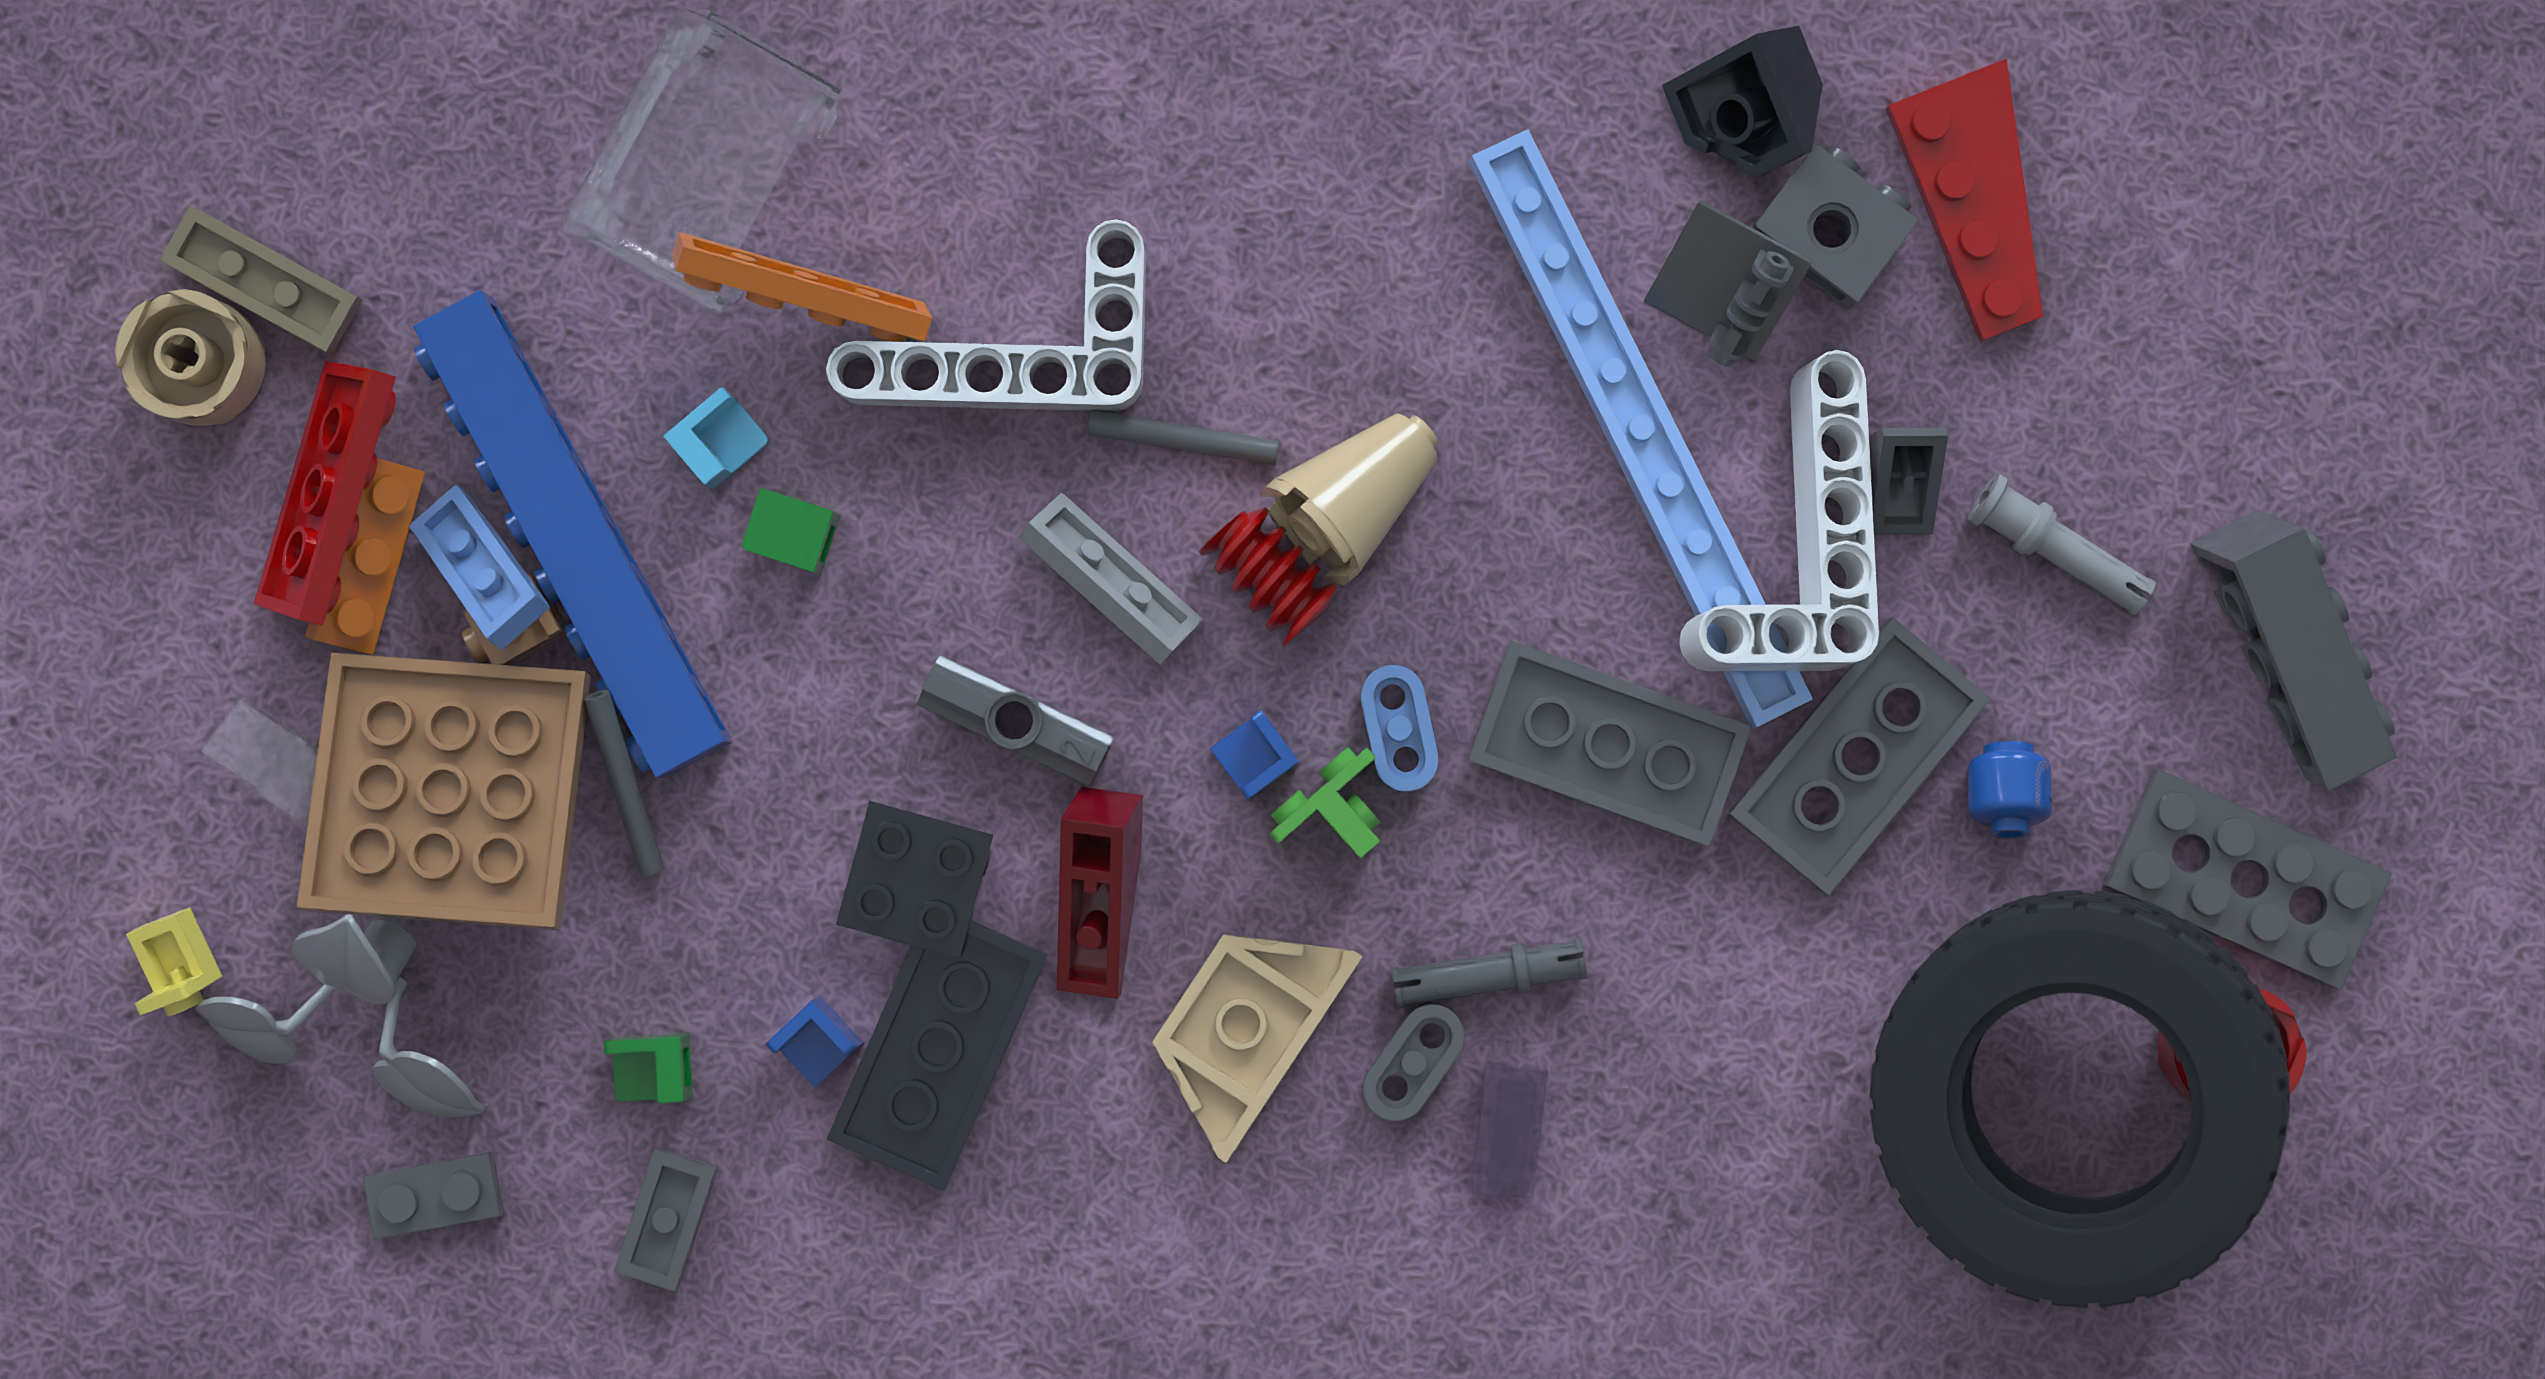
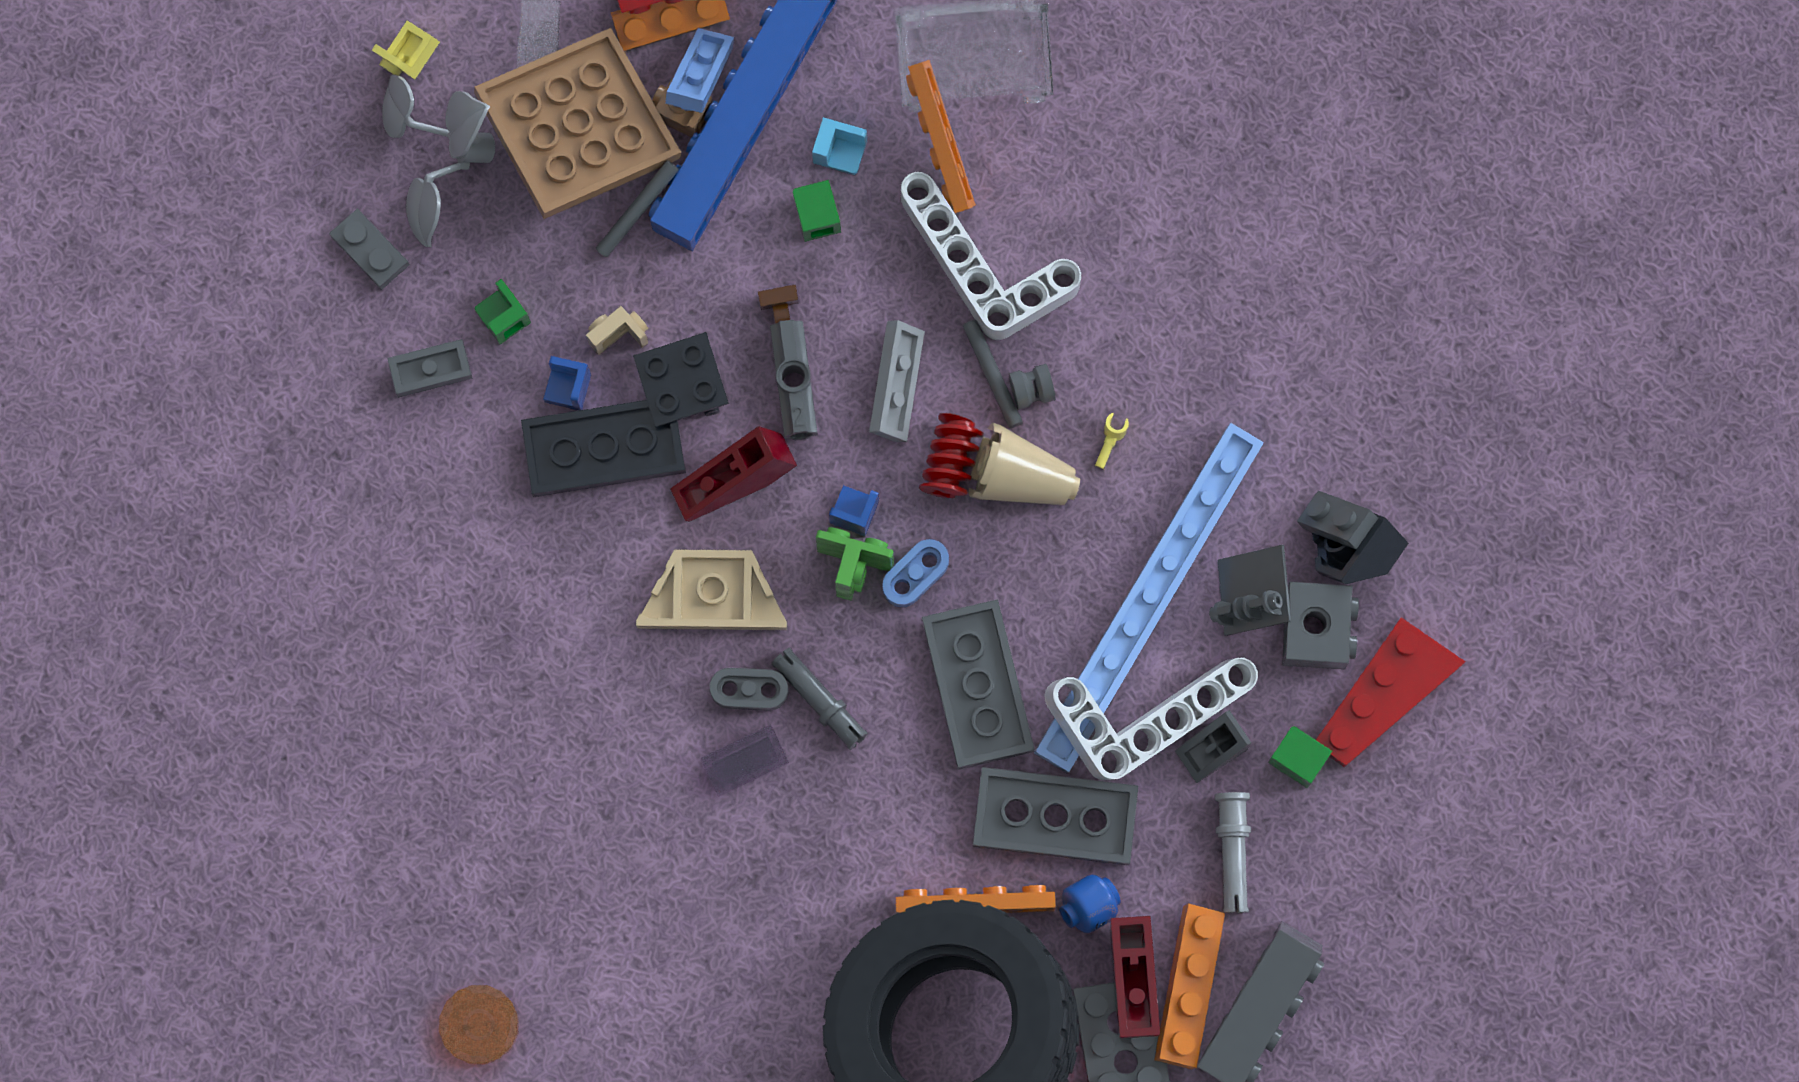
camera: 60 degrees right, 10 degrees down
(773, 935) = (610, 328): none -> tan bracket
(887, 668) = (778, 300): none -> reddish brown tile
(1236, 409) = (1023, 388): none -> dark grey wheel
(1383, 337) = (1112, 435): none -> light yellow hand
(1706, 100) = (1337, 519): none -> dark grey plate
(1921, 919) = (1032, 899): none -> orange plate
(1997, 370) = (1300, 756): none -> green panel
(2159, 798) = (1134, 976): none -> dark red slope
(2207, 727) = (1189, 986): none -> orange plate

